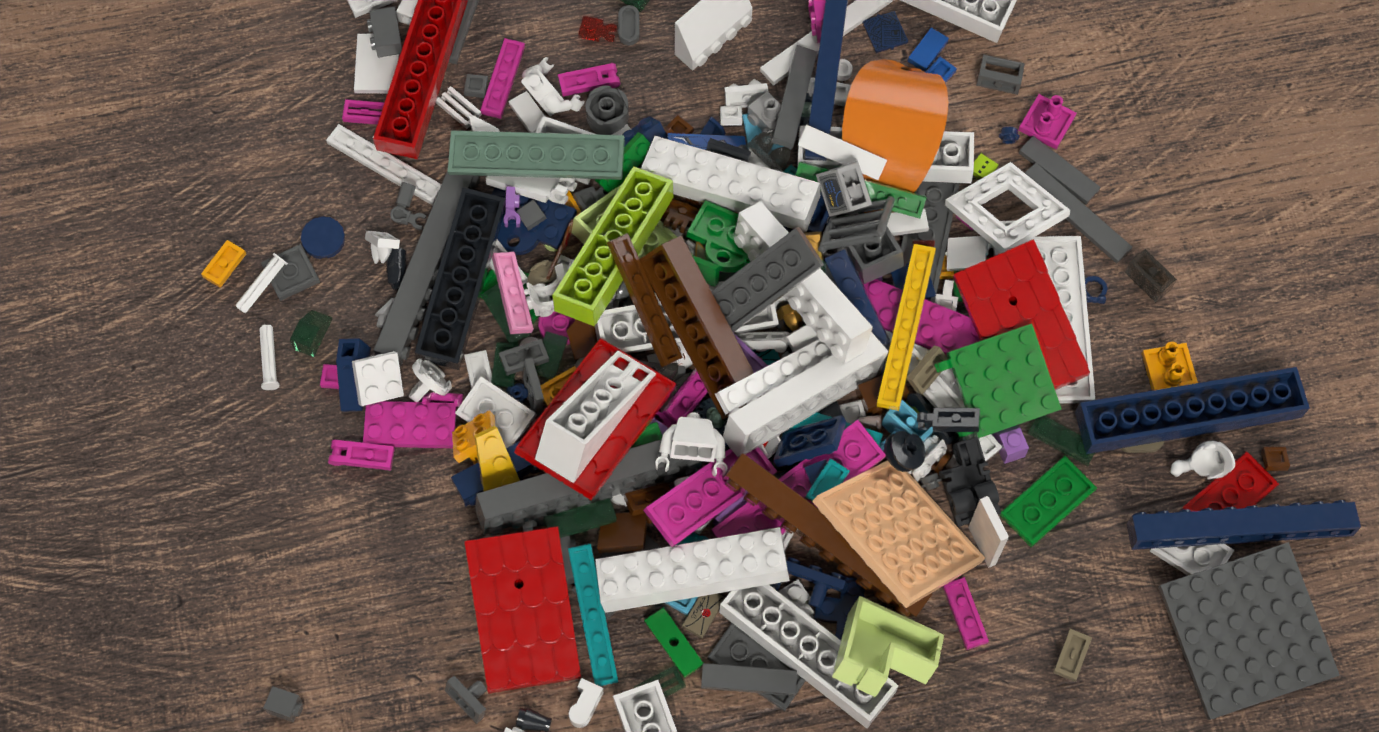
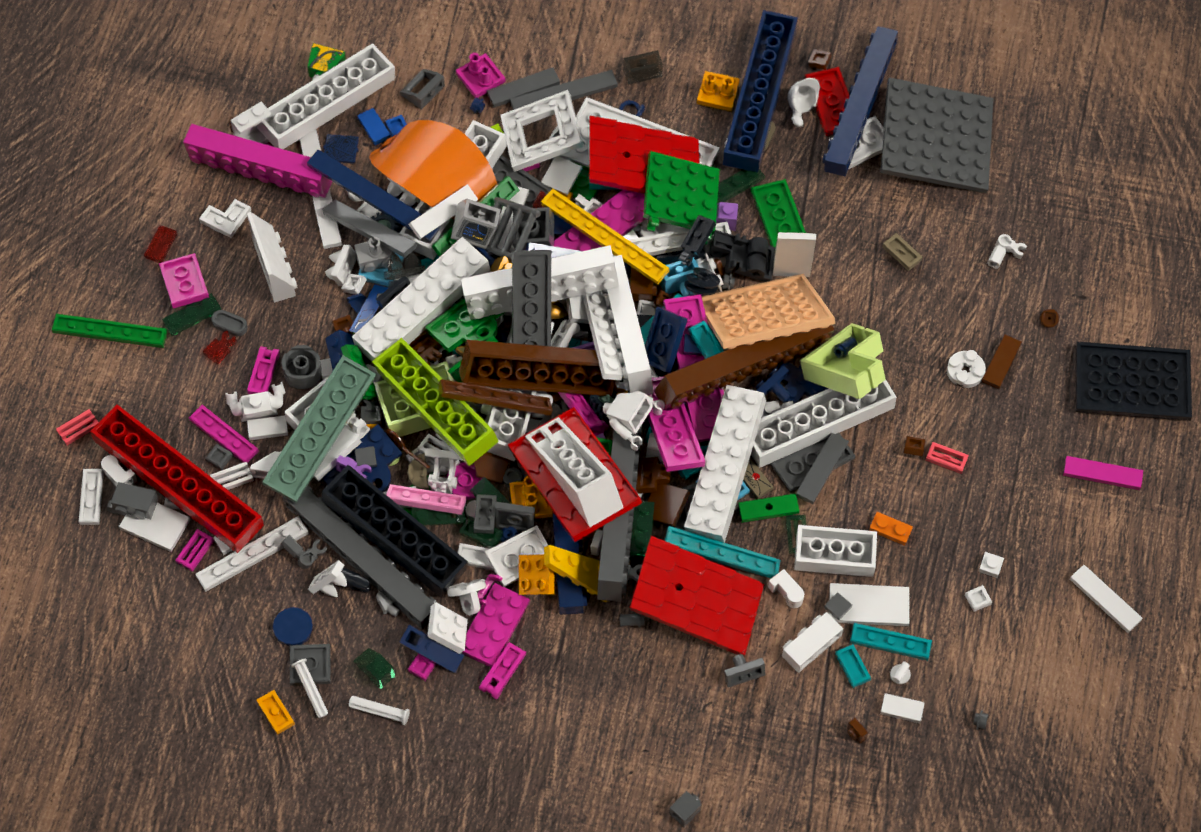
camera: 65 degrees left, 5 degrees down
(532, 720) = (782, 633): black cone -> none
(908, 640) = (842, 349): none -> dark blue pin
(925, 372) = (647, 238): dark tan plate -> none
(965, 613) = (845, 306): dark pink tile -> none

